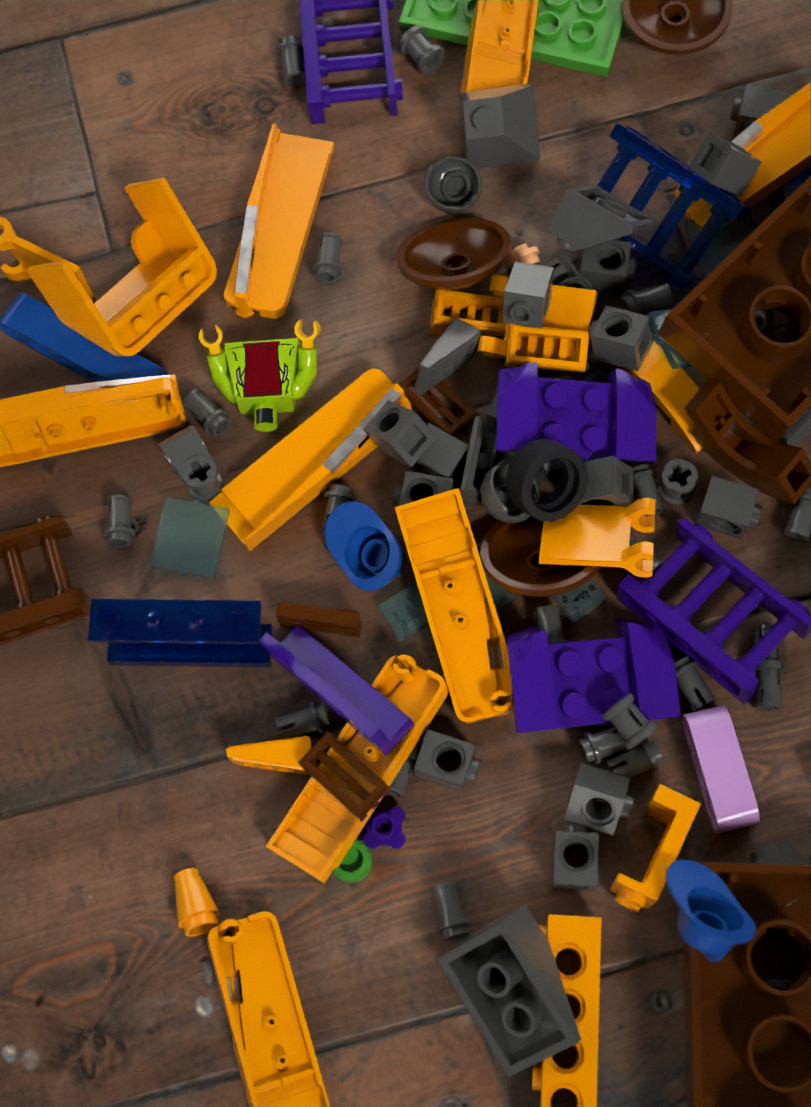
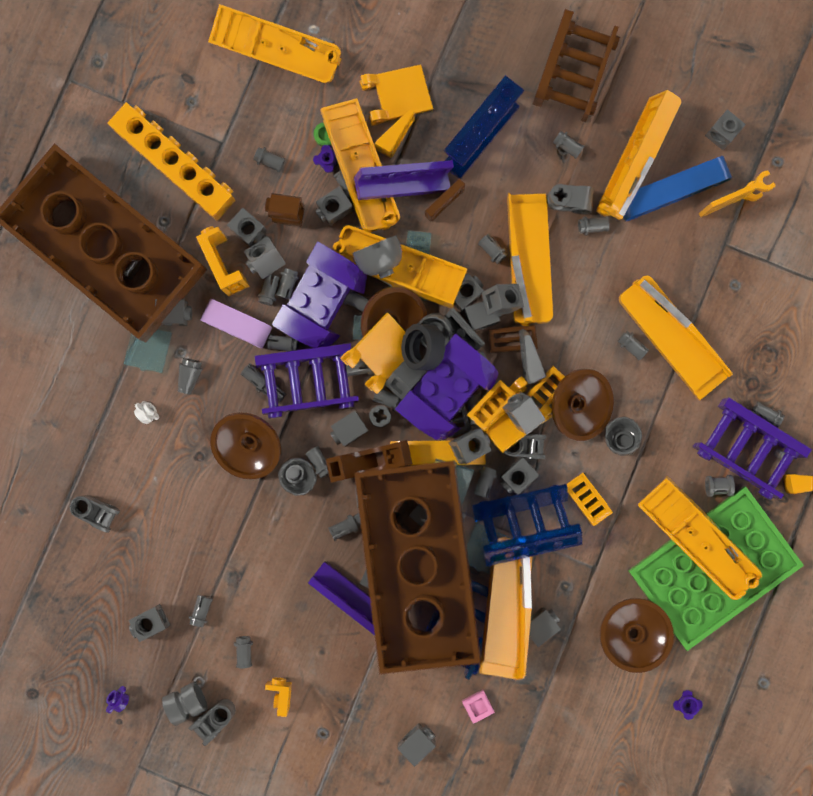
camera: 125 degrees right, 15 degrees up
(170, 276) = (680, 238): light orange windscreen -> none
(190, 537) = (534, 172): clear light blue piece -> none
(194, 904) = (359, 53): light orange cone -> none
(210, 800) = (398, 93): none -> light orange flag
(264, 374) = (592, 264): torso -> none
(305, 720) = (404, 154): dark grey pin -> none
(363, 546) = (460, 244): blue piece -> none
(370, 800) = (358, 160): reddish brown tile -> none
(472, 626) = (379, 257): none -> dark grey cylinder
(500, 126) = (638, 484): dark grey slope -> none
(507, 817) = (285, 209): none -> reddish brown brick
(513, 990) = (214, 155): dark grey slope -> none
(523, 254) = (554, 439): light nougat plate -> none
(565, 149) = (593, 520): none -> light orange slope
(595, 217) = (538, 485): dark grey slope -> none
(629, 721) = (292, 298): dark grey bush -> none
(708, 911) = (174, 251): blue piece -> none
(725, 164) = (517, 568): dark grey brick -> none

